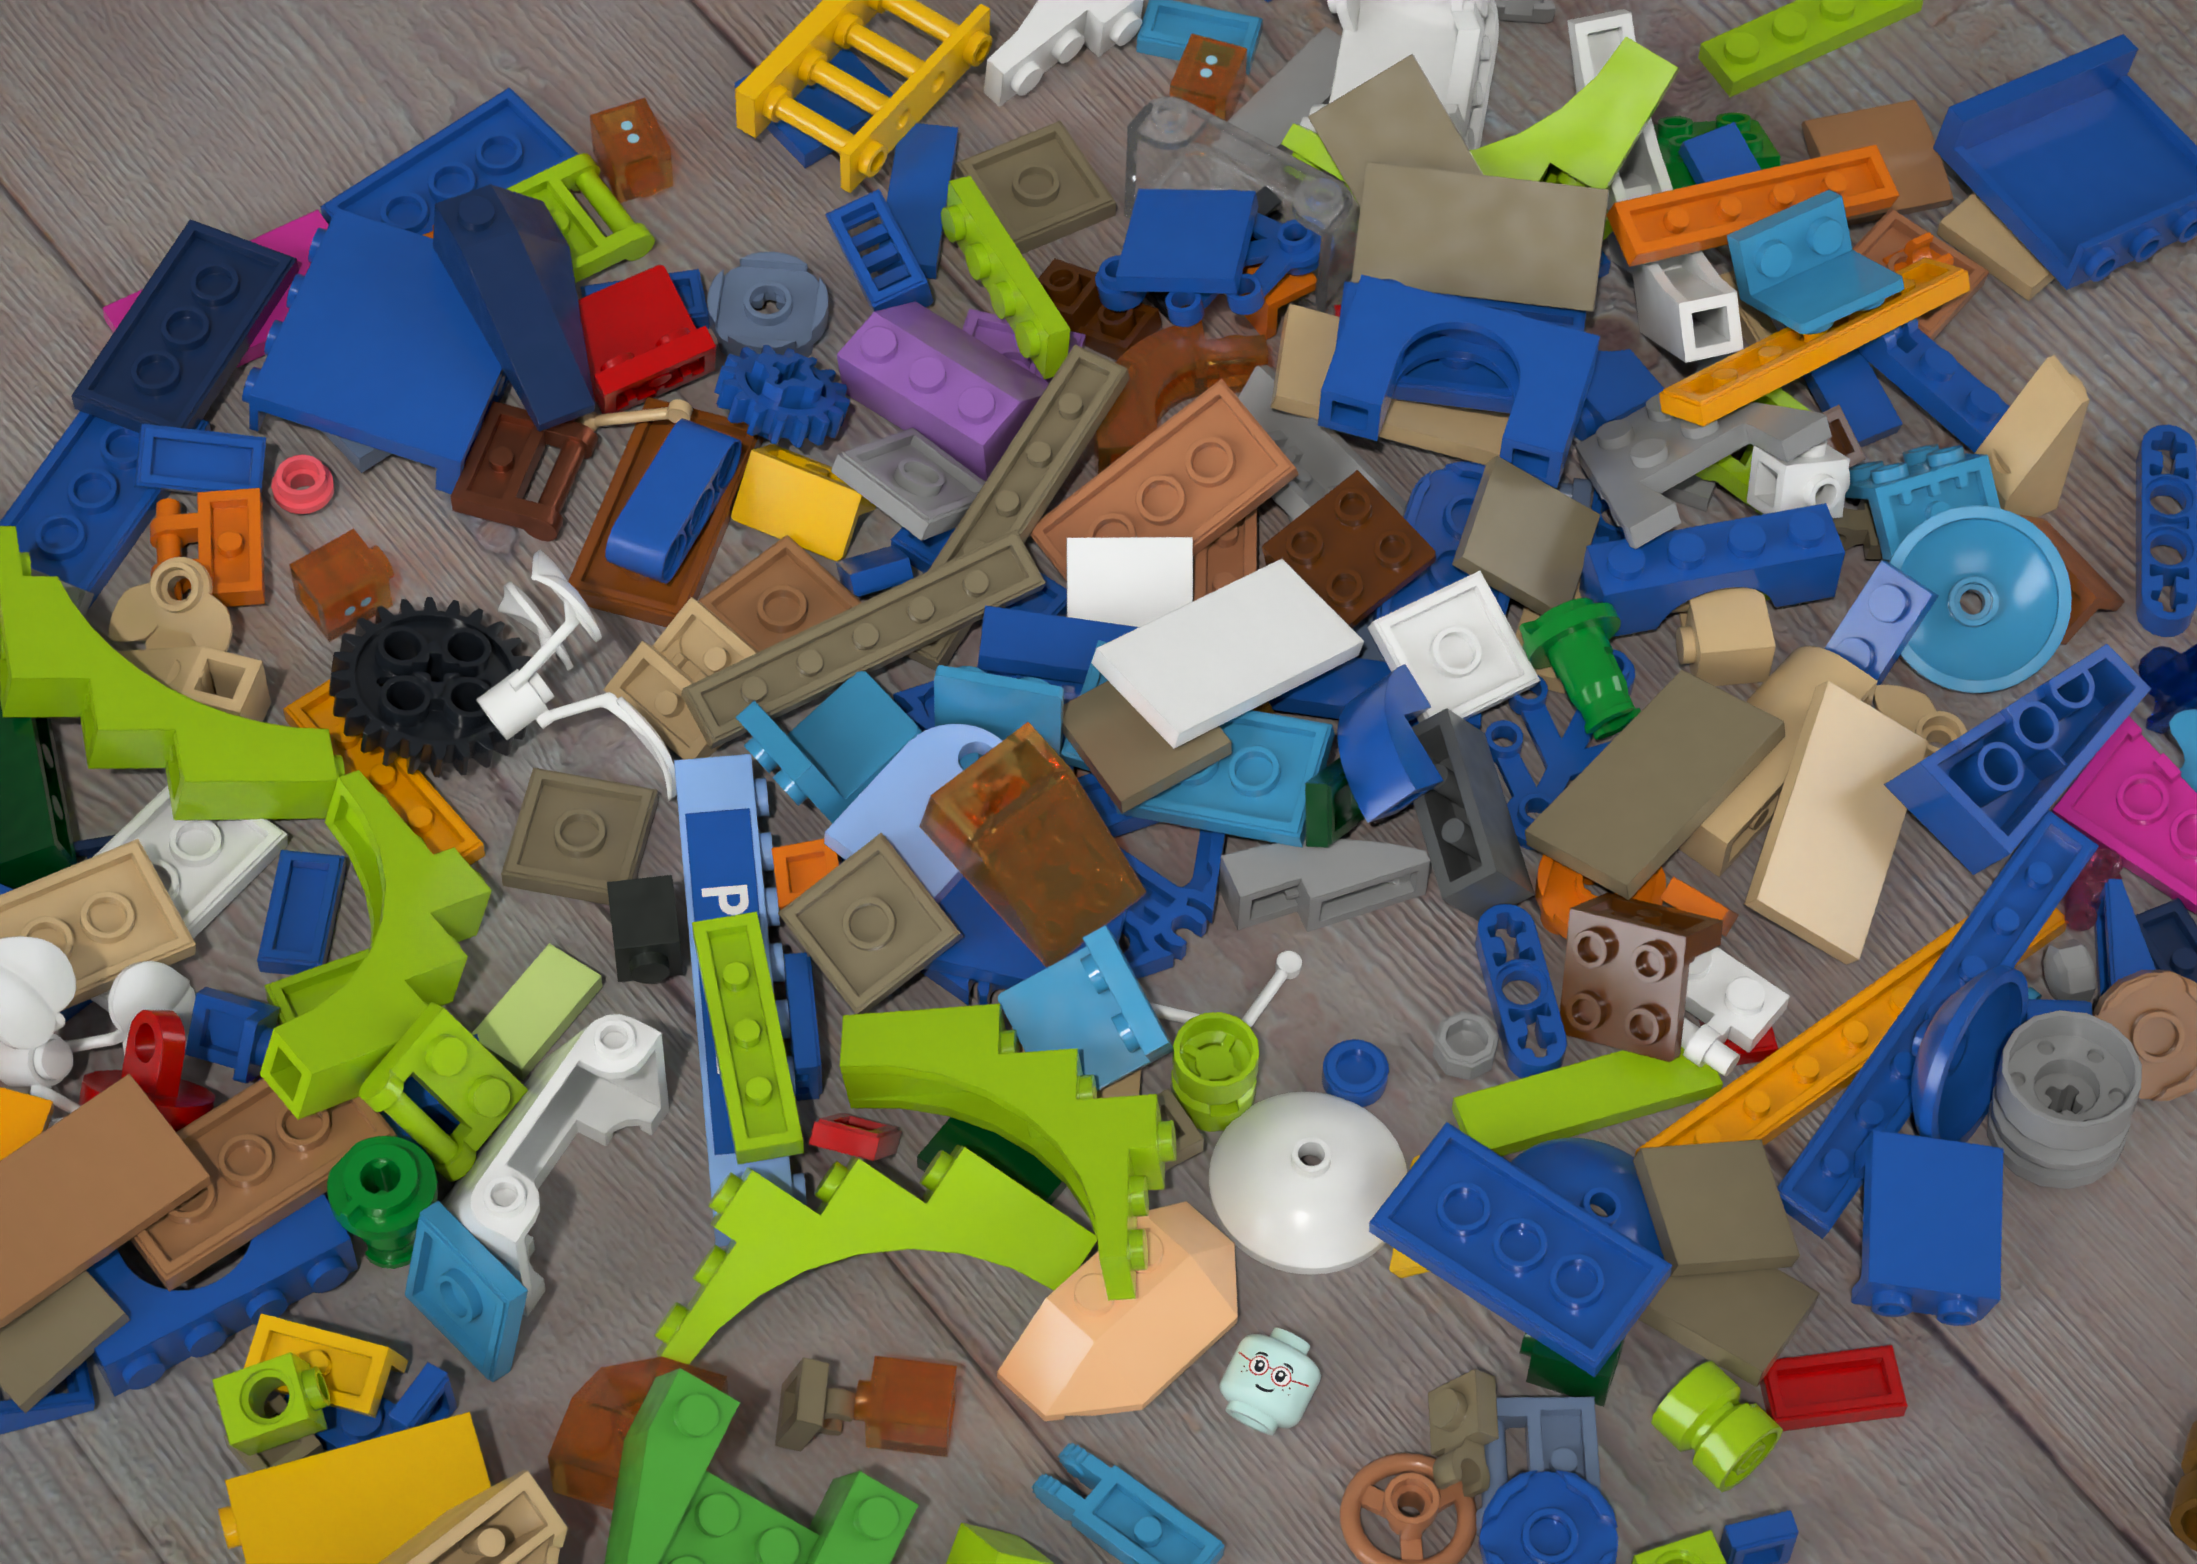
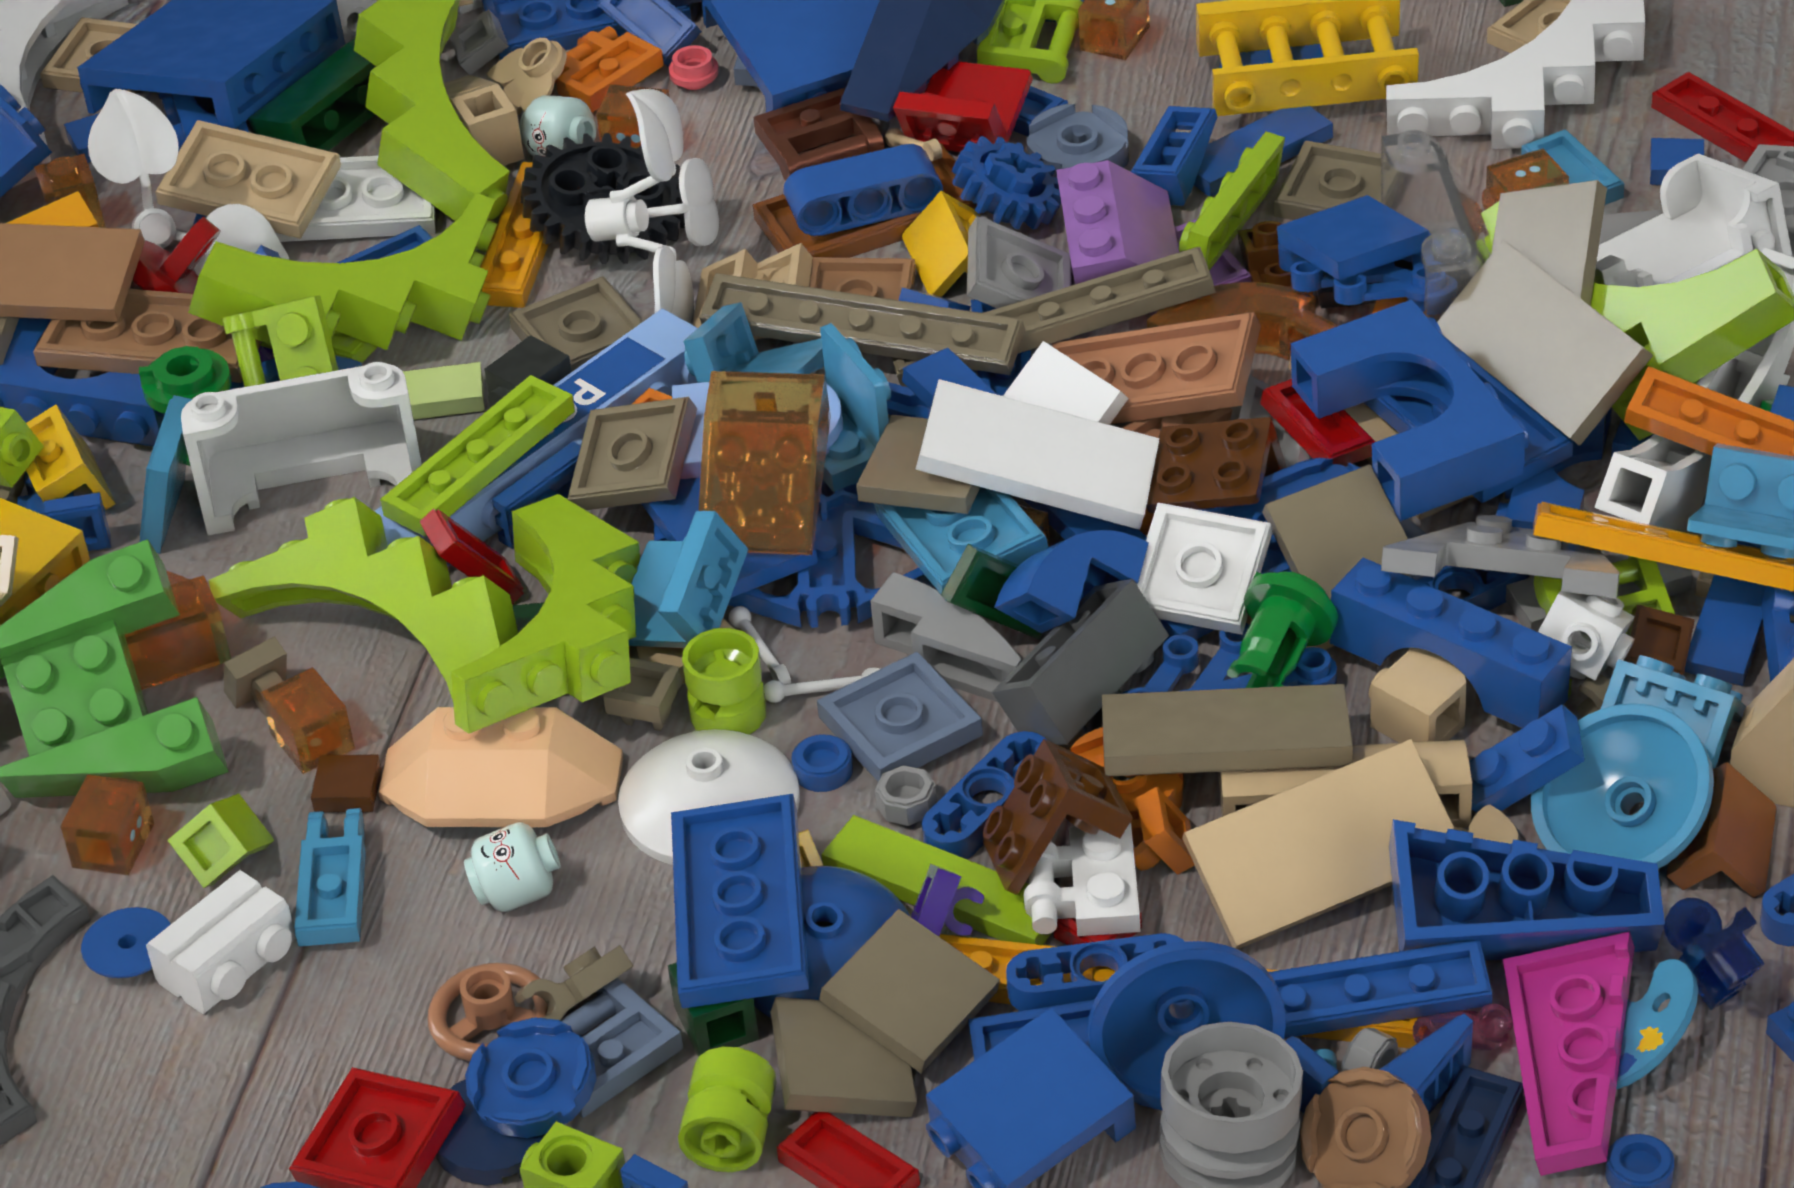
camera: 55 degrees right, 15 degrees down
(284, 642) = (552, 119): none -> light aqua head
(1010, 1432) = (346, 783): none -> reddish brown tile
(1371, 981) = (900, 716): none -> sand blue plate
(1395, 455) = (1329, 437): none -> red tile
(1636, 1114) = (938, 898): none -> dark purple tile
(1821, 1044) = (1053, 962): none -> blue beam

